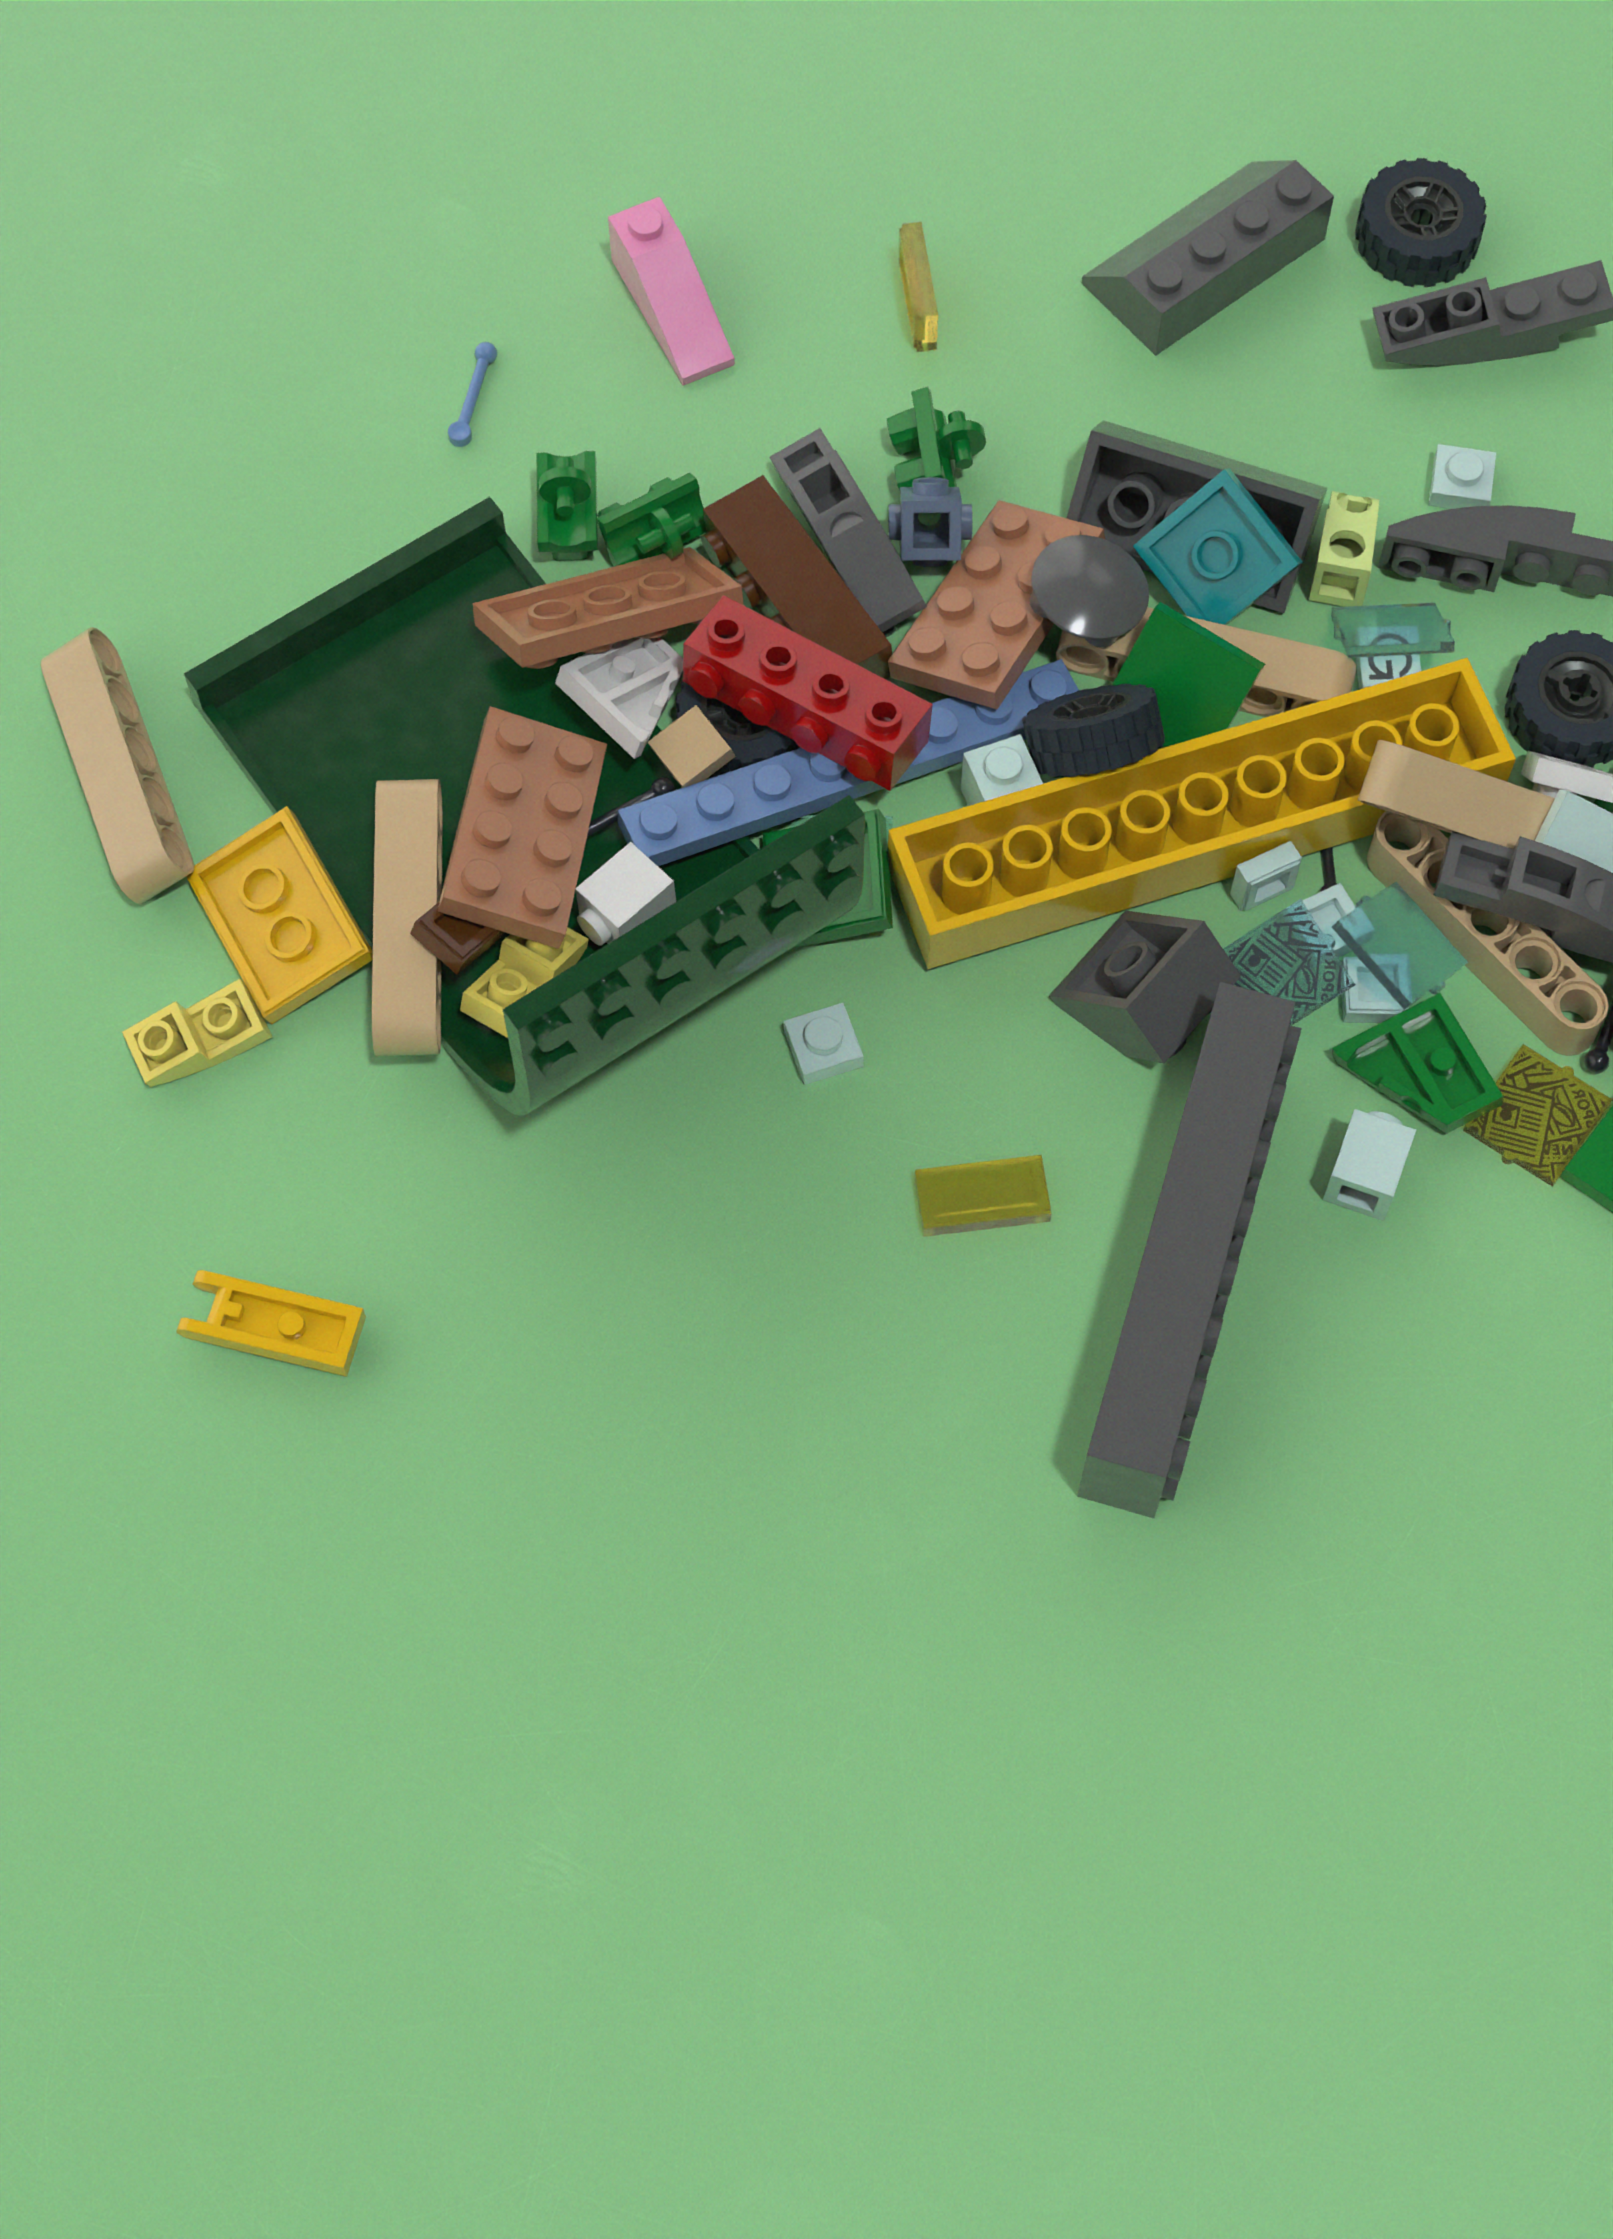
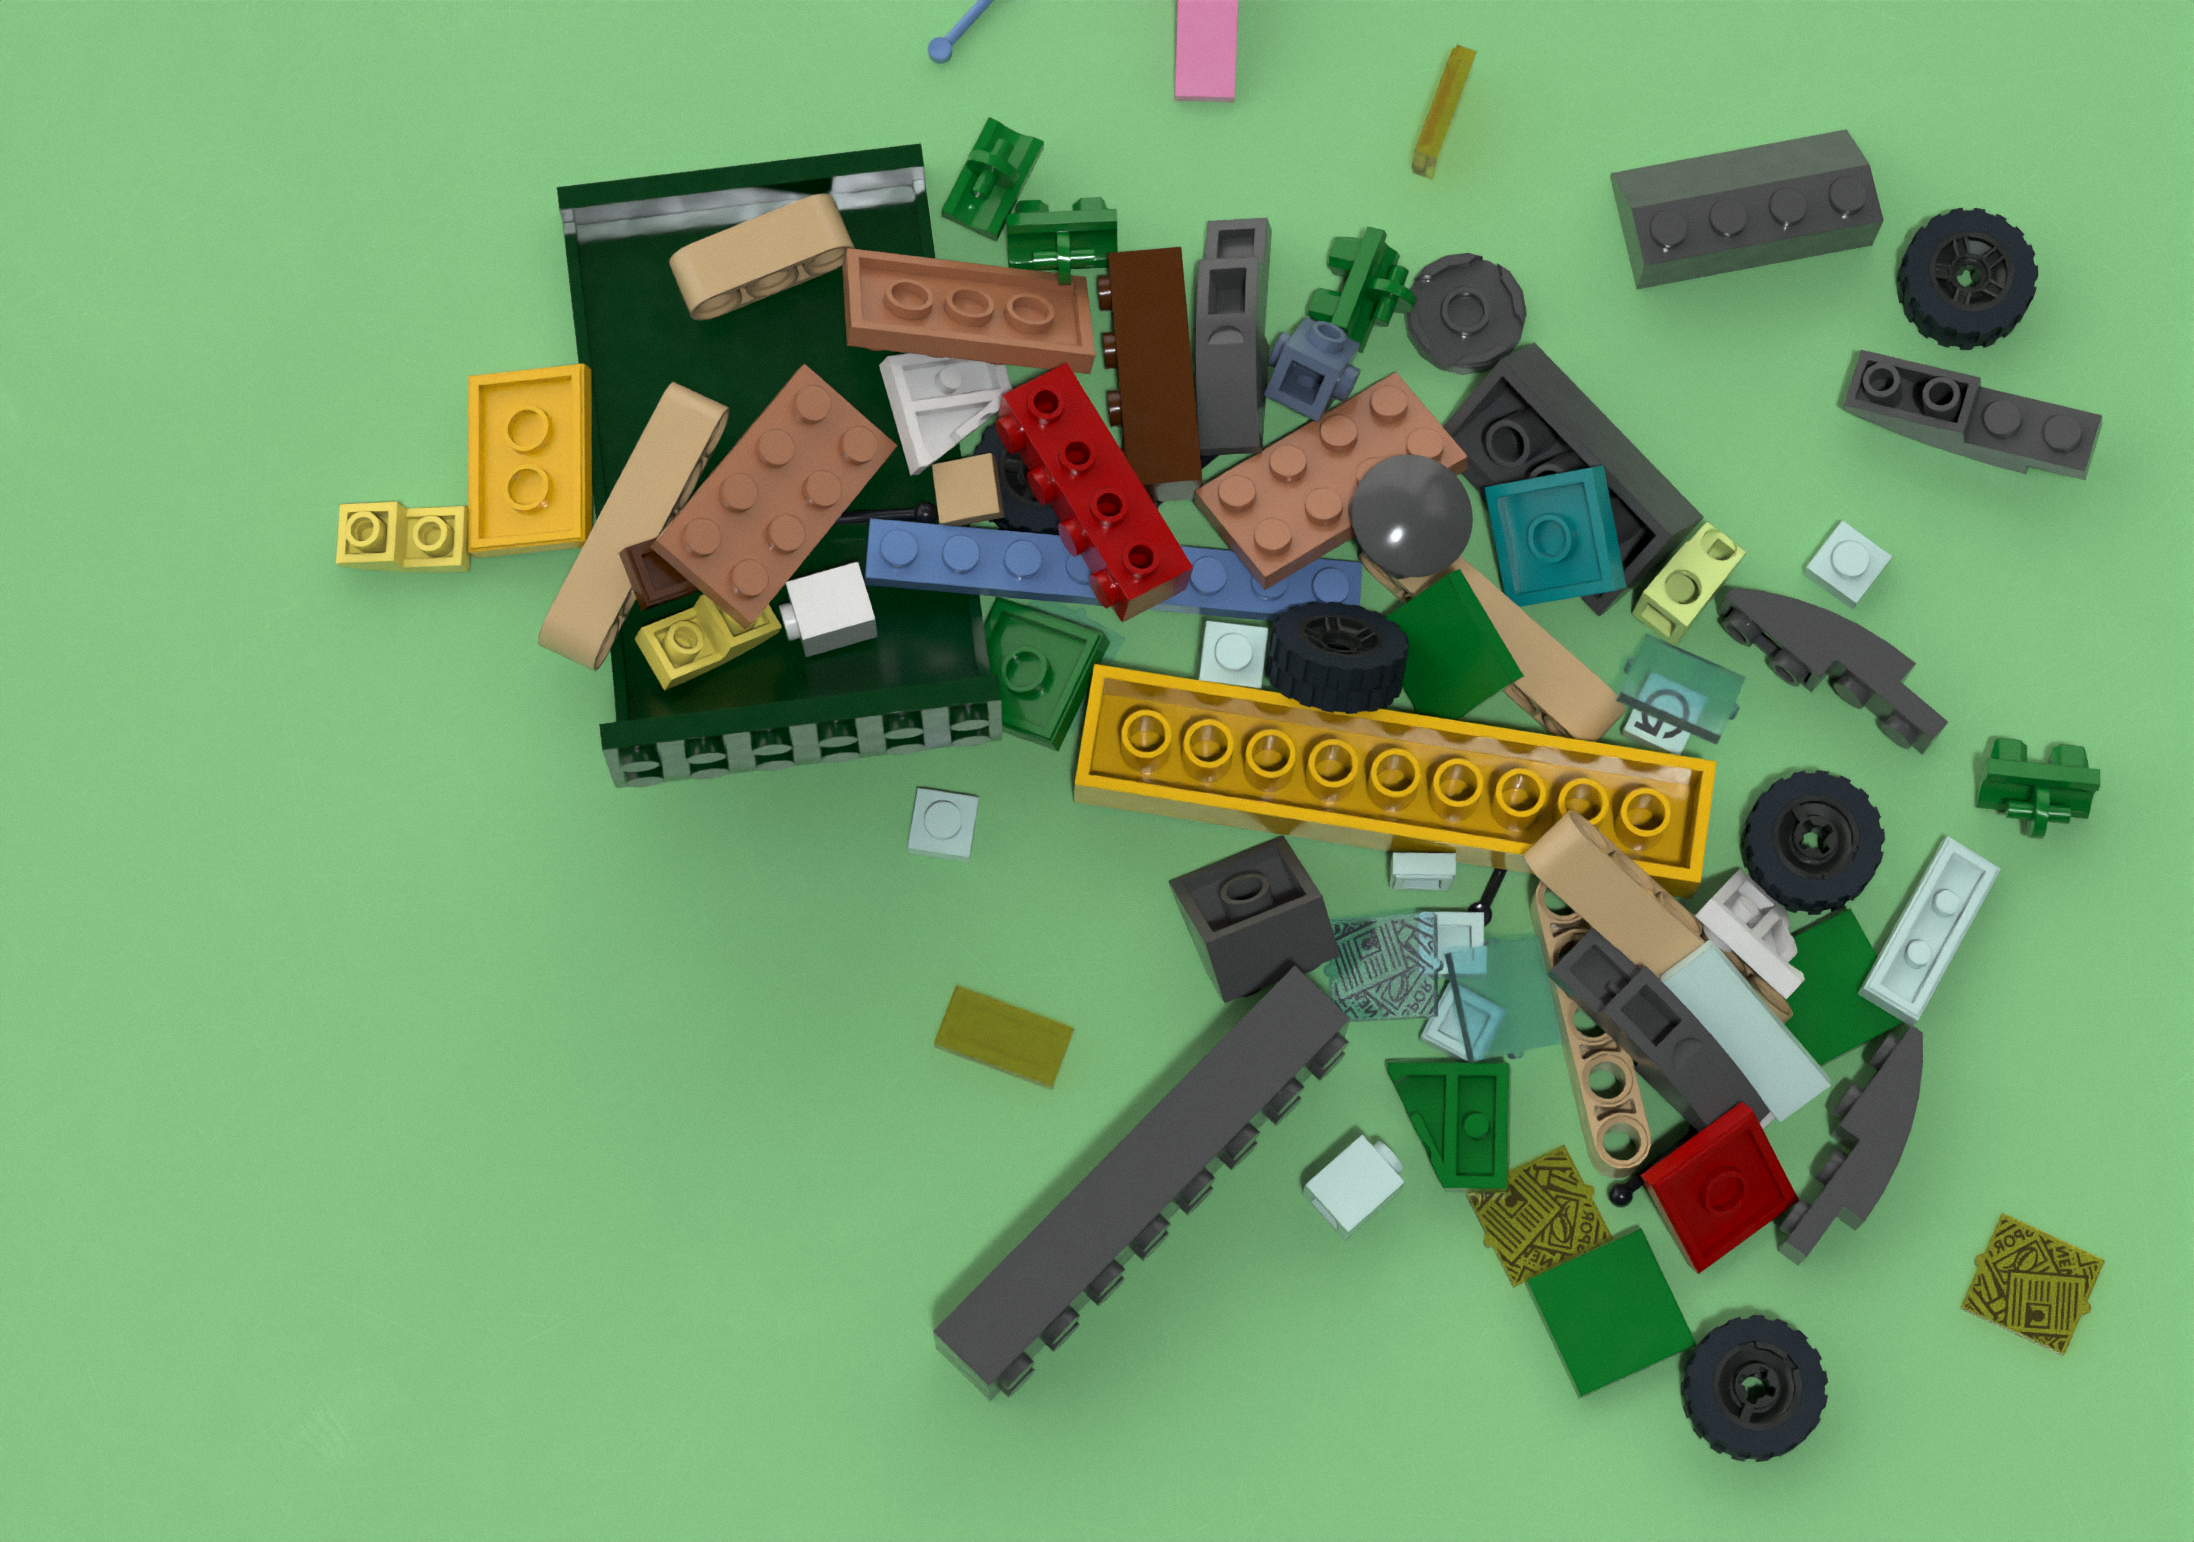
camera: 25 degrees right, 10 degrees up
(117, 766) = (458, 243): tan beam -> none
(277, 1323) = (339, 845): yellow hinge -> none
(398, 650) = (761, 257): none -> tan beam
(1030, 434) = (1465, 314): none -> dark grey tile

